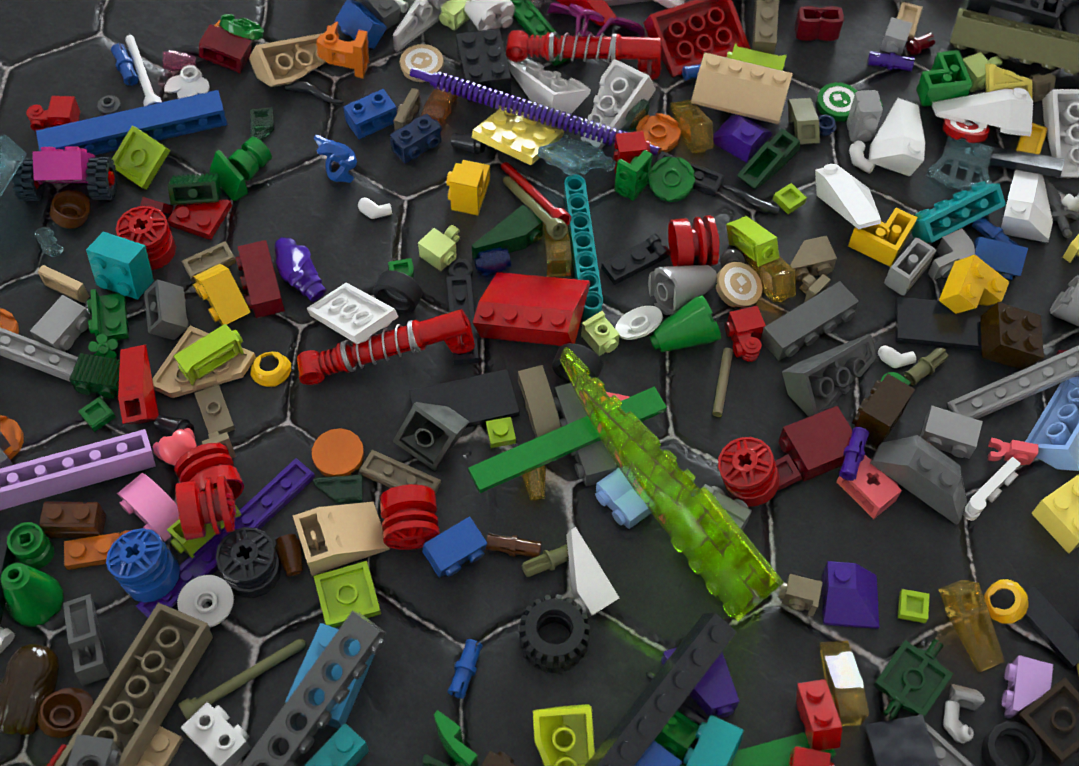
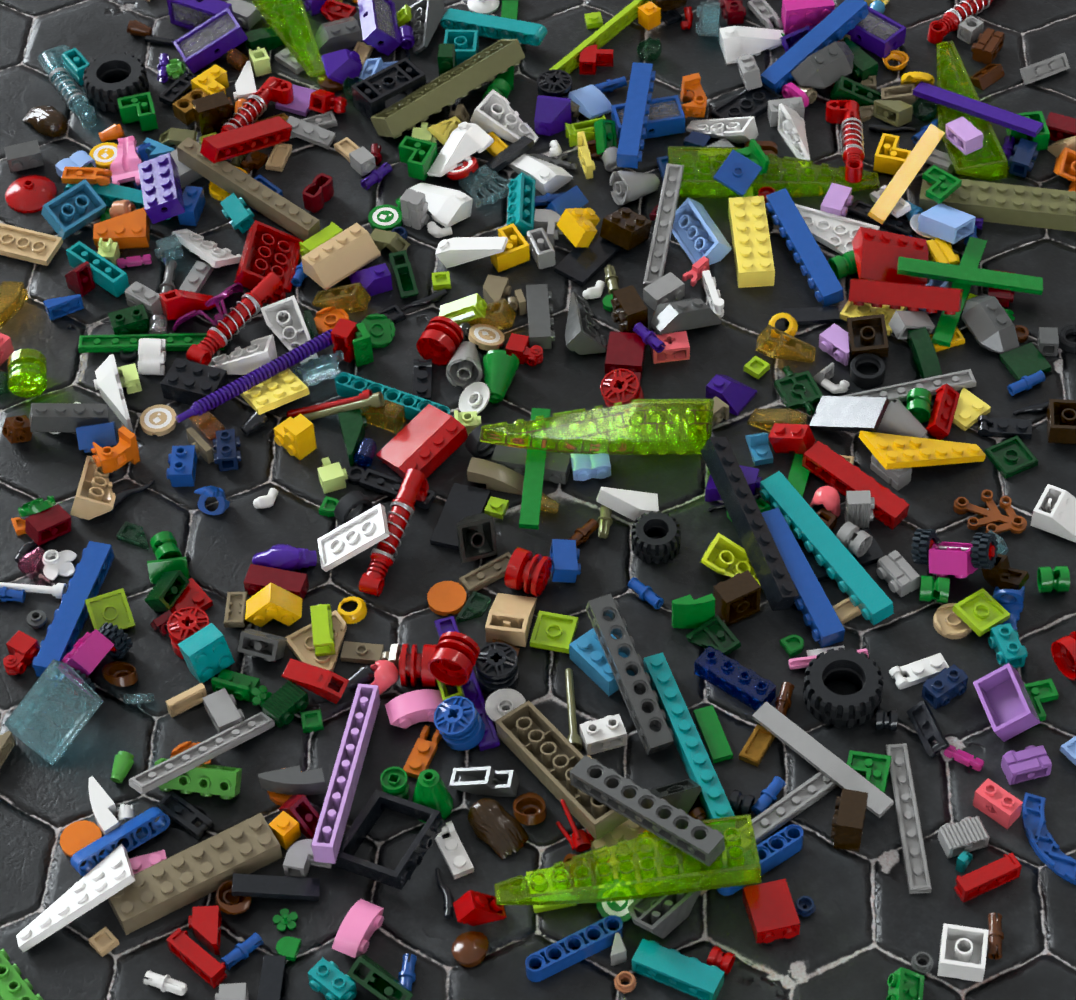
camera: 55 degrees left, 10 degrees down
(72, 519) = (392, 754): reddish brown brick -> none
(722, 382) = (546, 381): dark tan bar -> none
(783, 682) = (759, 448): none -> dark azure slope

